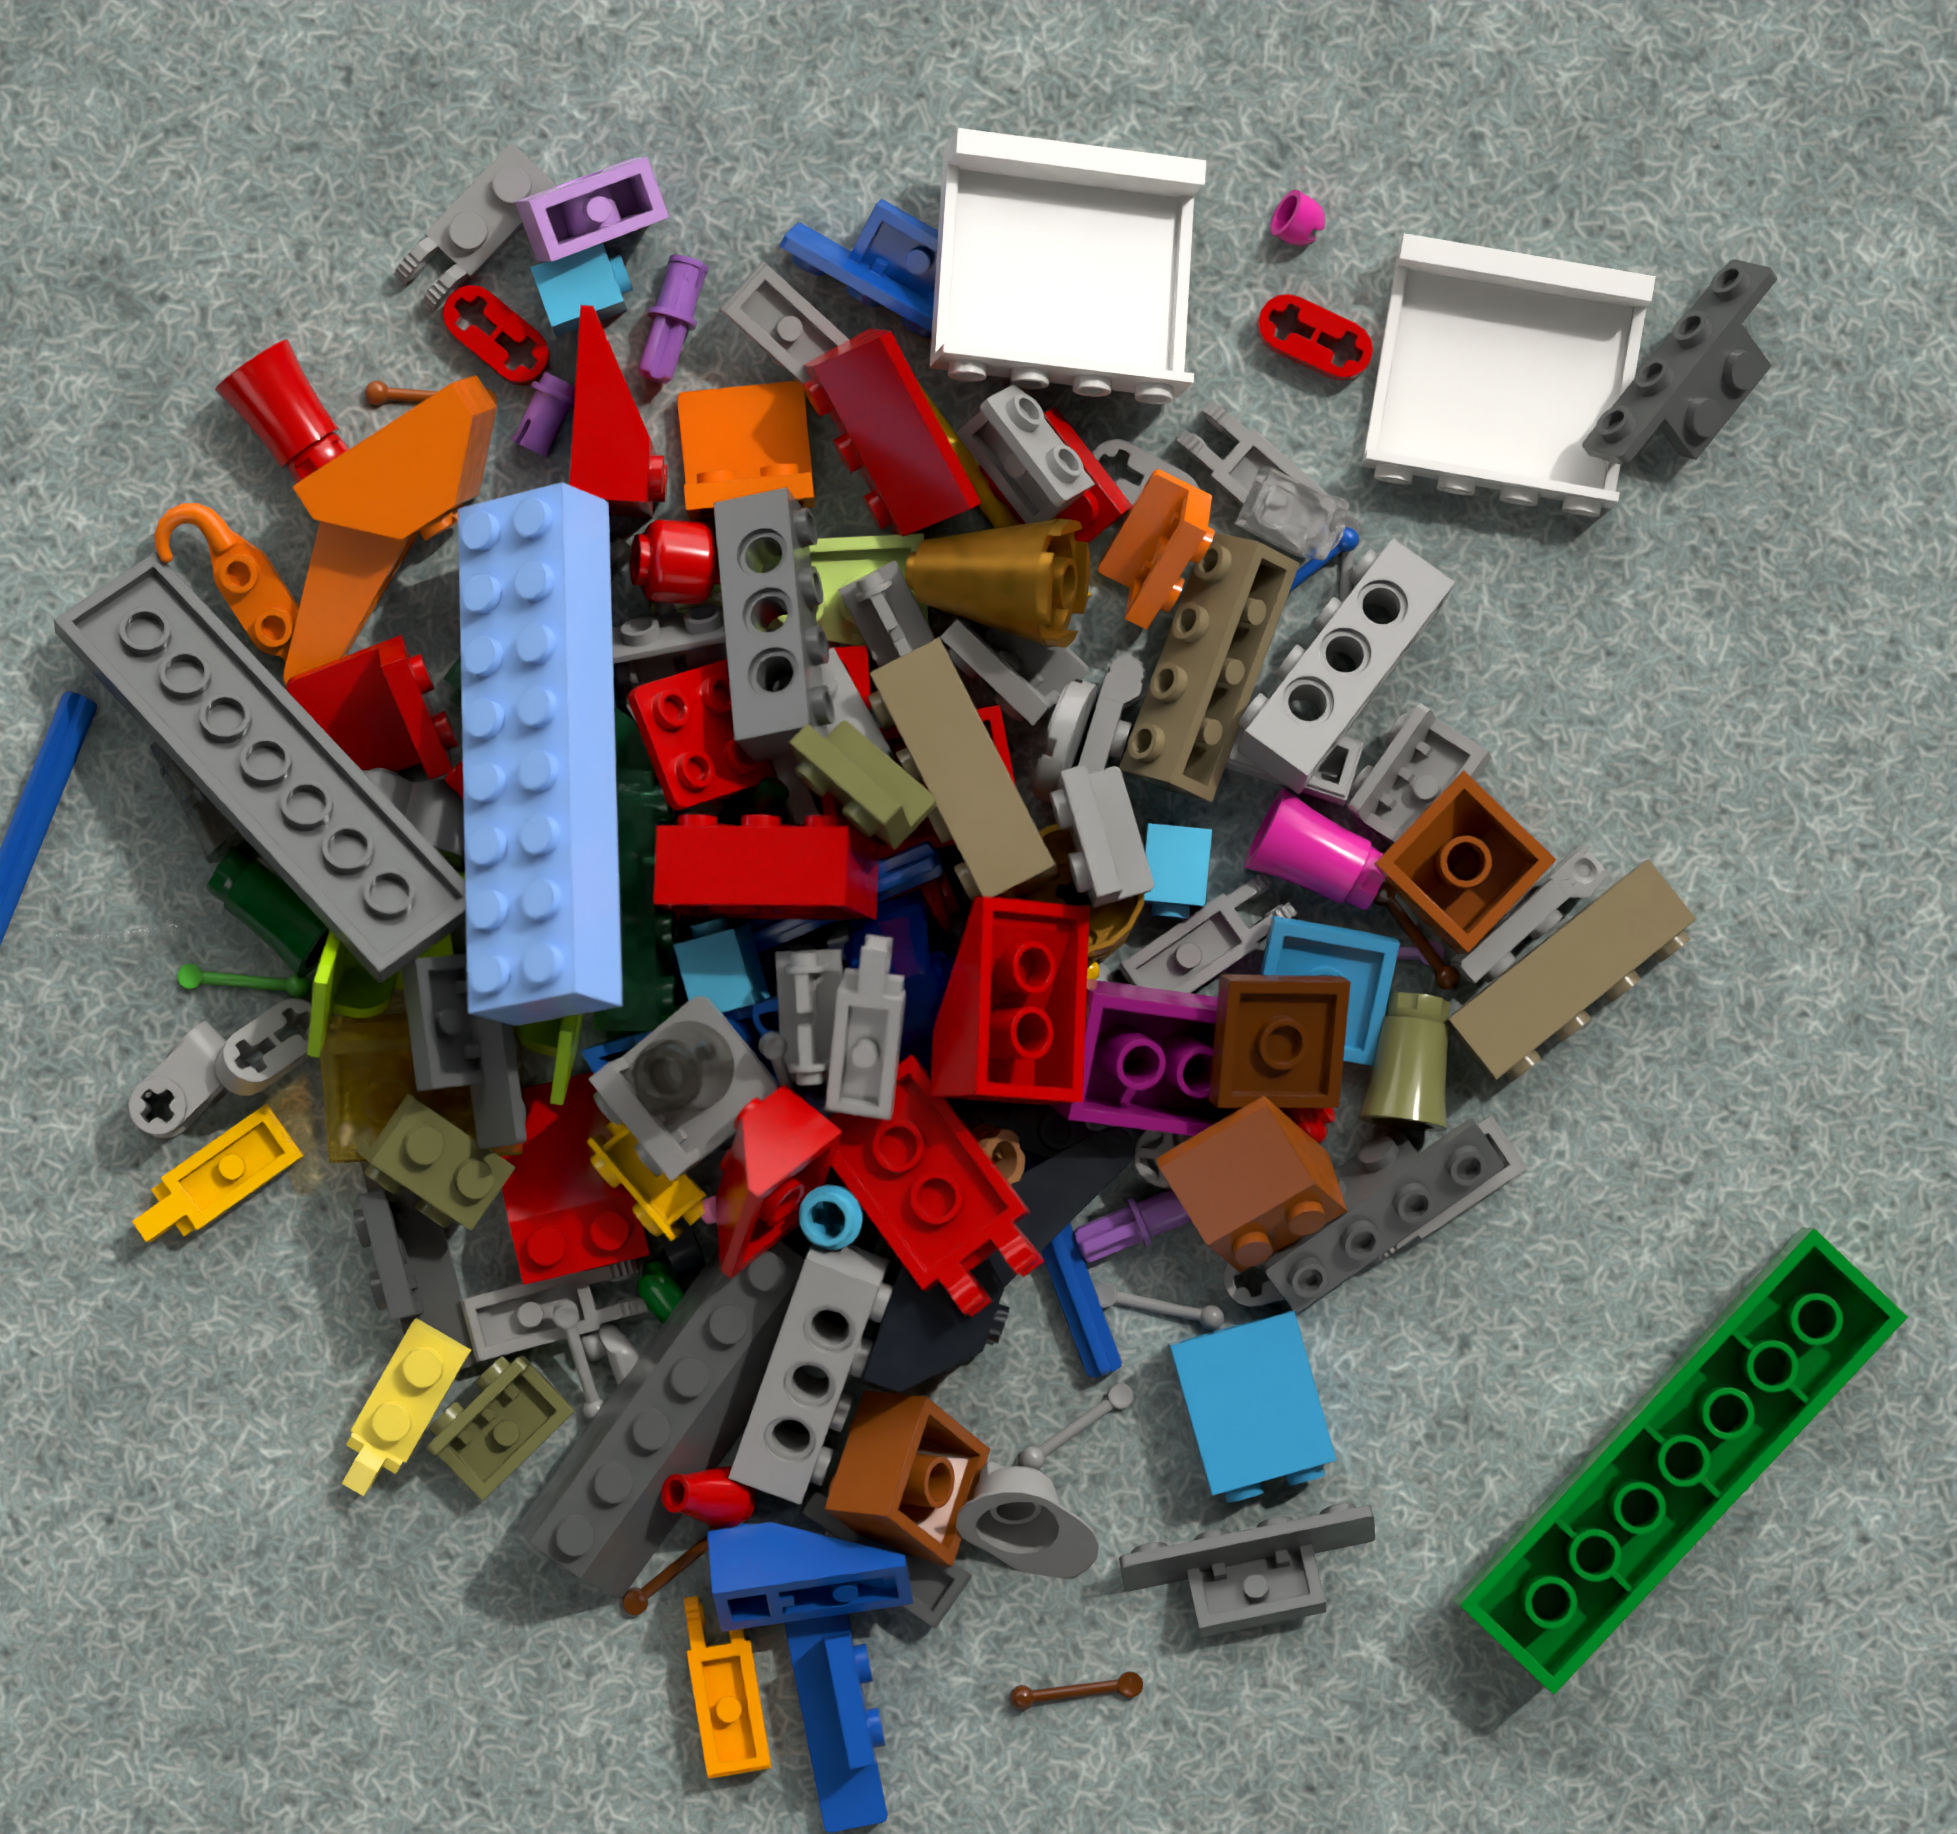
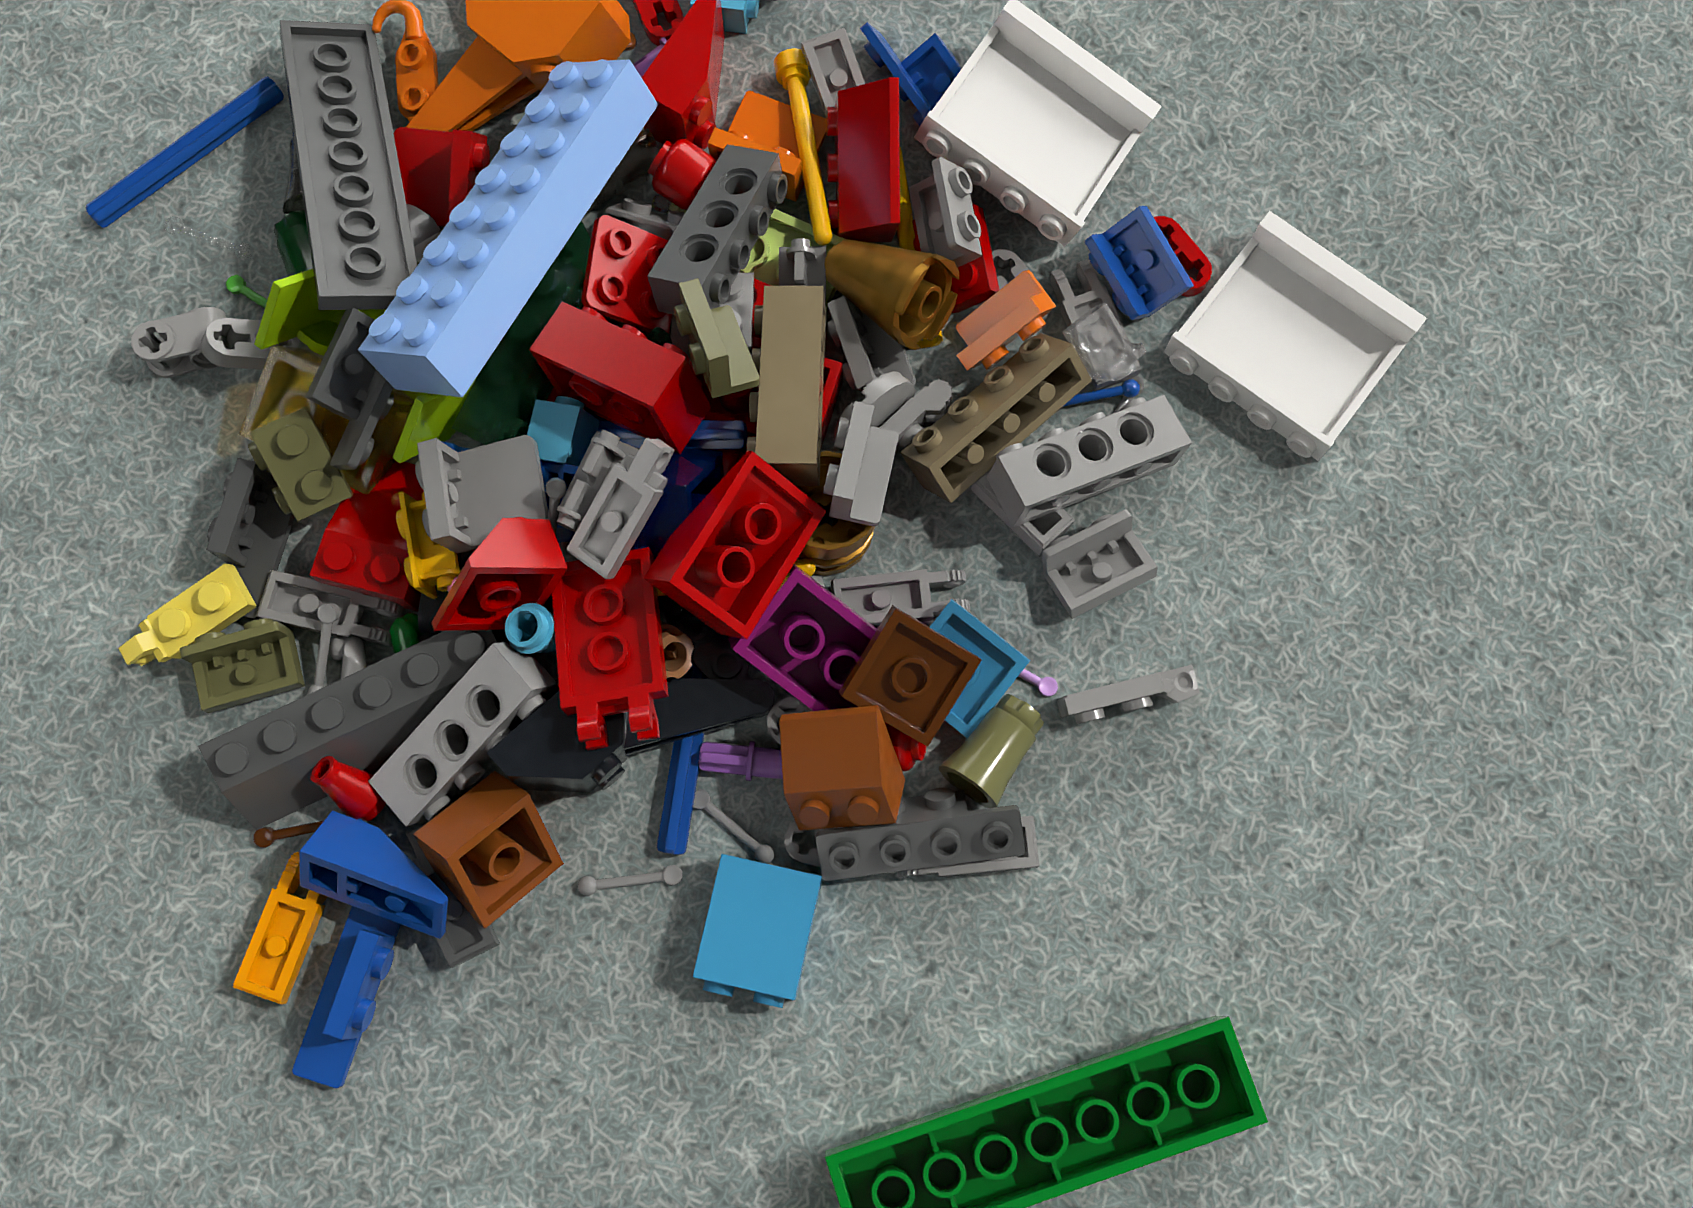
camera: 35 degrees right, 10 degrees down
(220, 1175) = (170, 411): yellow hinge -> none
(672, 317) = (769, 45): medium lavender axle -> none
(703, 1062) = (486, 472): clear smoke plant -> none
(725, 344) = (794, 76): none -> yellow piece
(1024, 1524) = (552, 925): light grey piece -> none
(1128, 1684) = (563, 1085): reddish brown hinge -> none
(1178, 869) = (902, 536): medium azure brick -> none
(1251, 1573) = (693, 1051): dark grey bracket -> none
(1279, 383) = (1138, 264): none -> blue bracket
(1297, 218) = (1201, 177): dark pink hinge -> none
(1315, 853) = (1004, 575): dark pink plant -> none
(1446, 976) = (1035, 630): reddish brown hinge -> none
(1463, 864) = (1102, 629): dark orange slope -> none
(1570, 971) = (1140, 745): dark tan brick -> none
(1694, 375) = (1421, 400): dark grey bracket -> none

